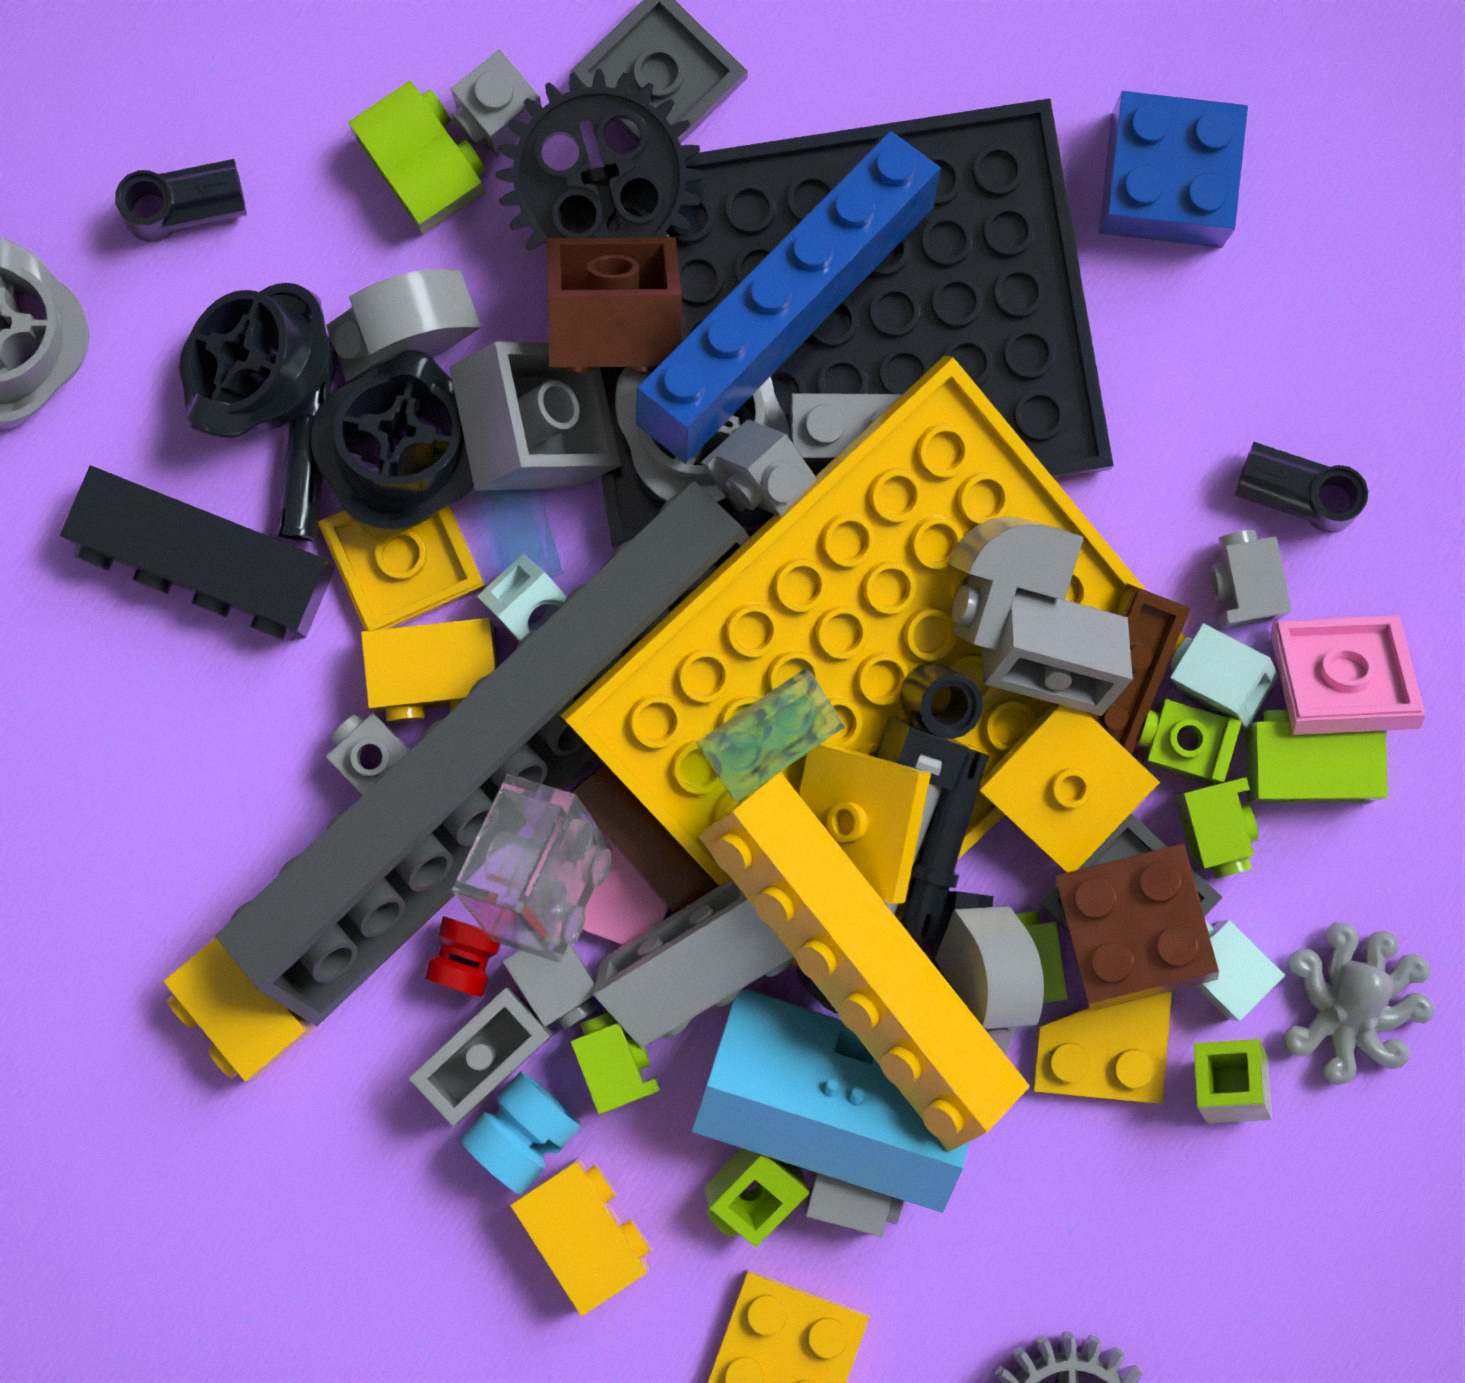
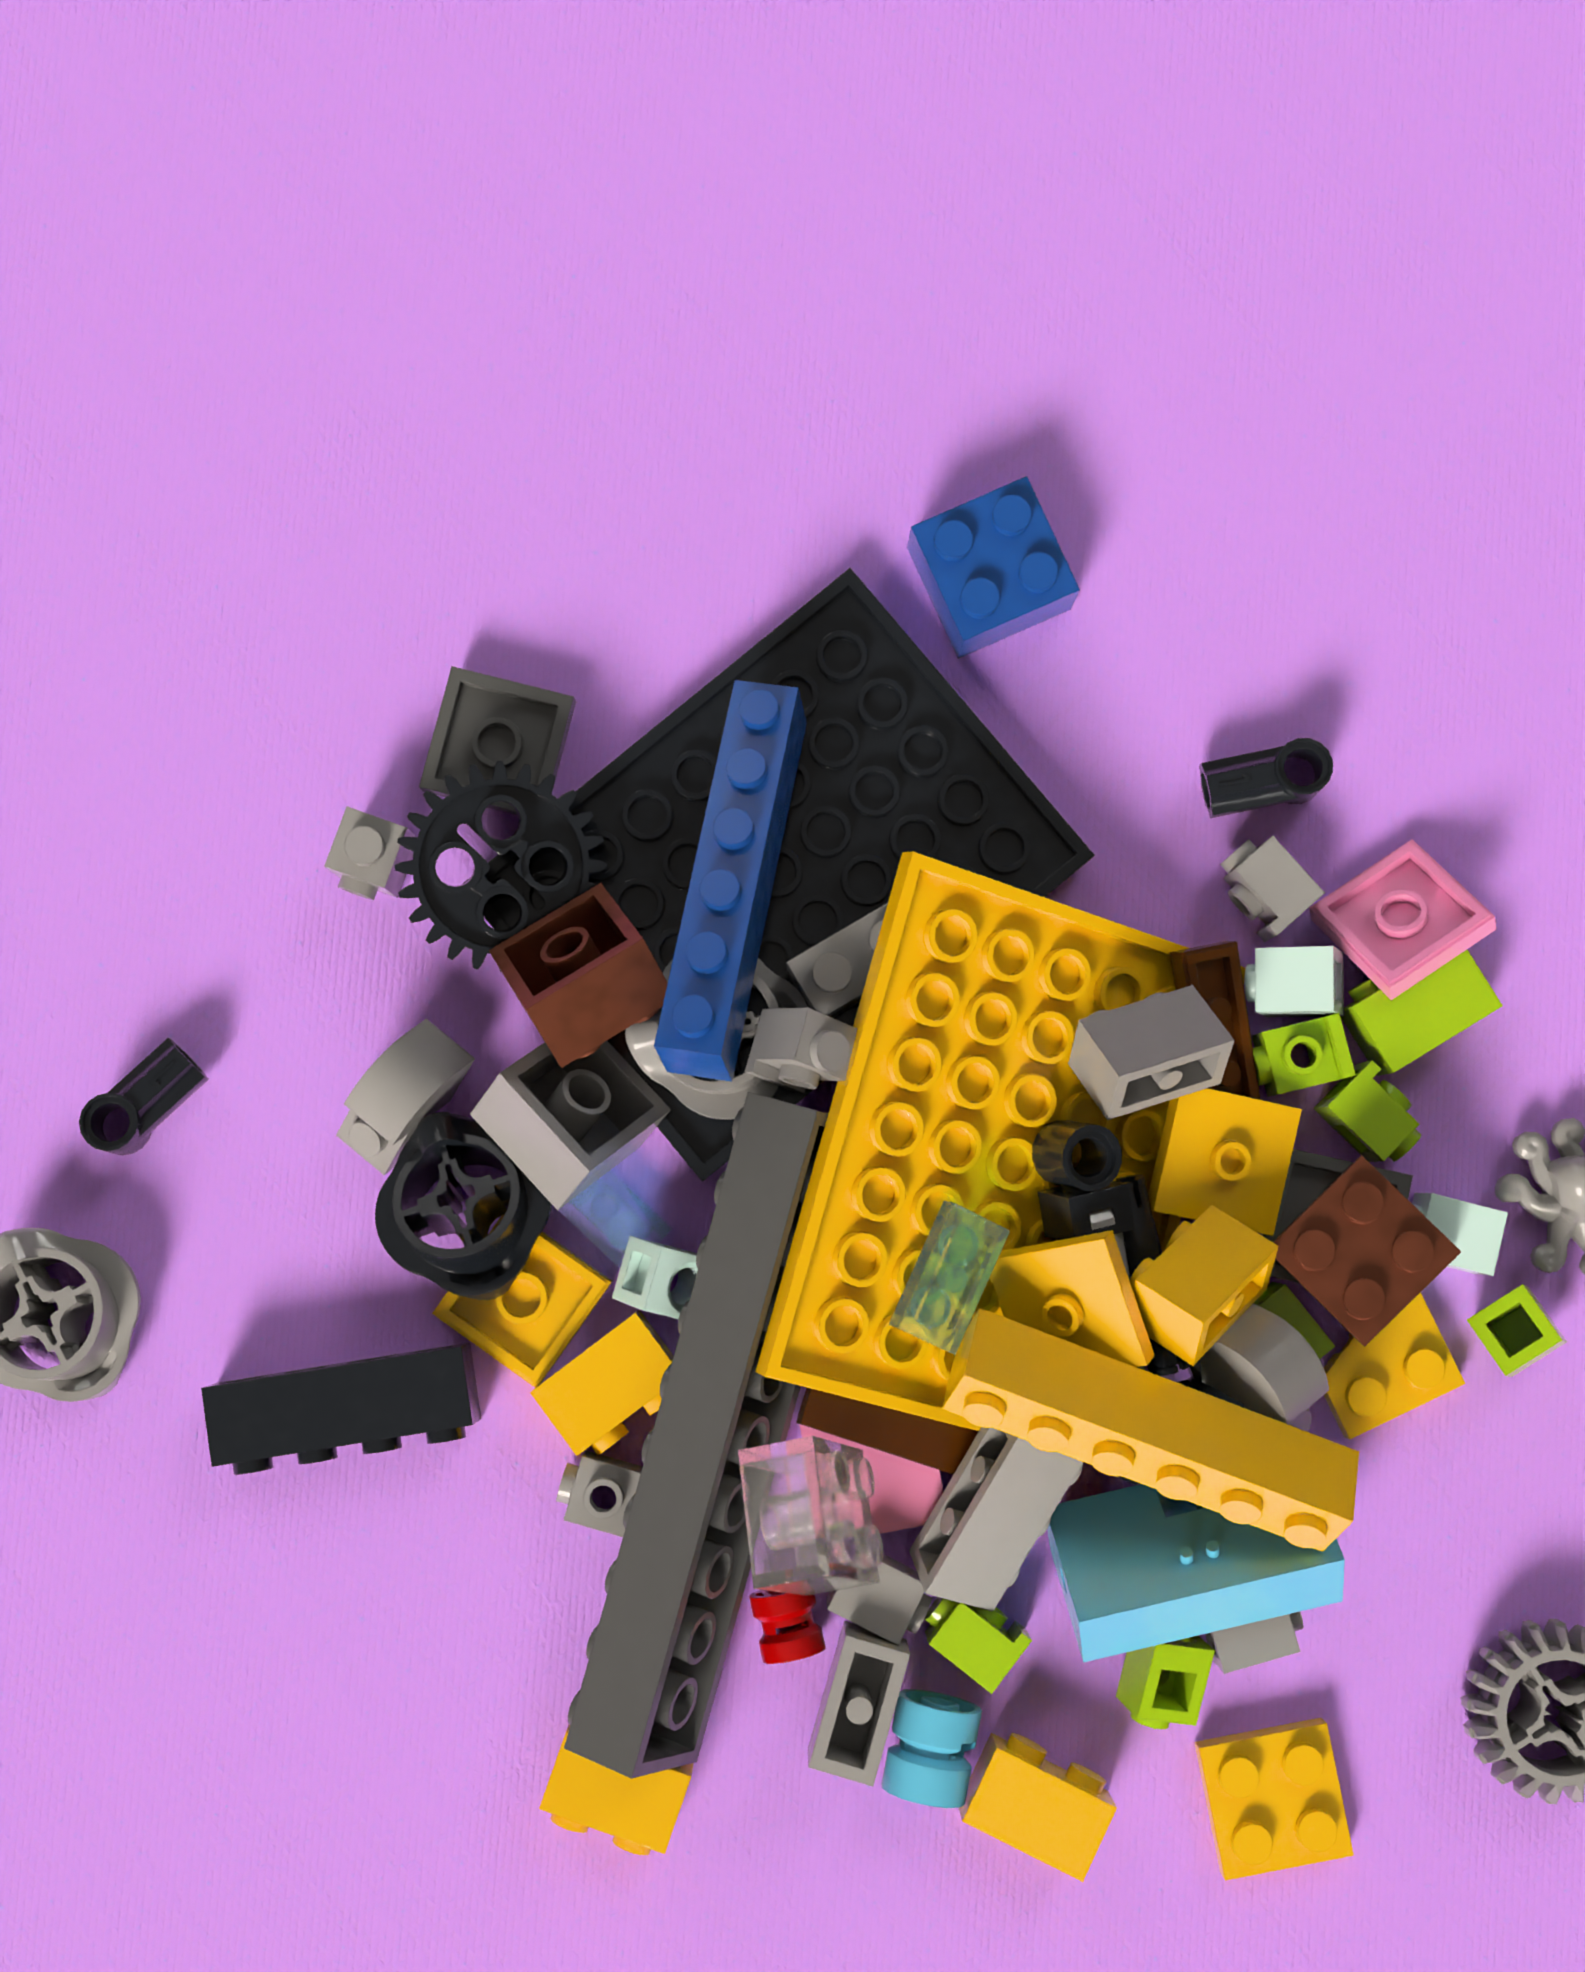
camera: 30 degrees left, 0 degrees up
(254, 360) = (292, 1208): black piece -> none
(301, 476) = (395, 1284): black pin -> none
(418, 156) = (329, 939): lime brick -> none
(983, 870) = (1202, 1282): none -> yellow brick
(1000, 558) = (1057, 1001): light grey brick -> none

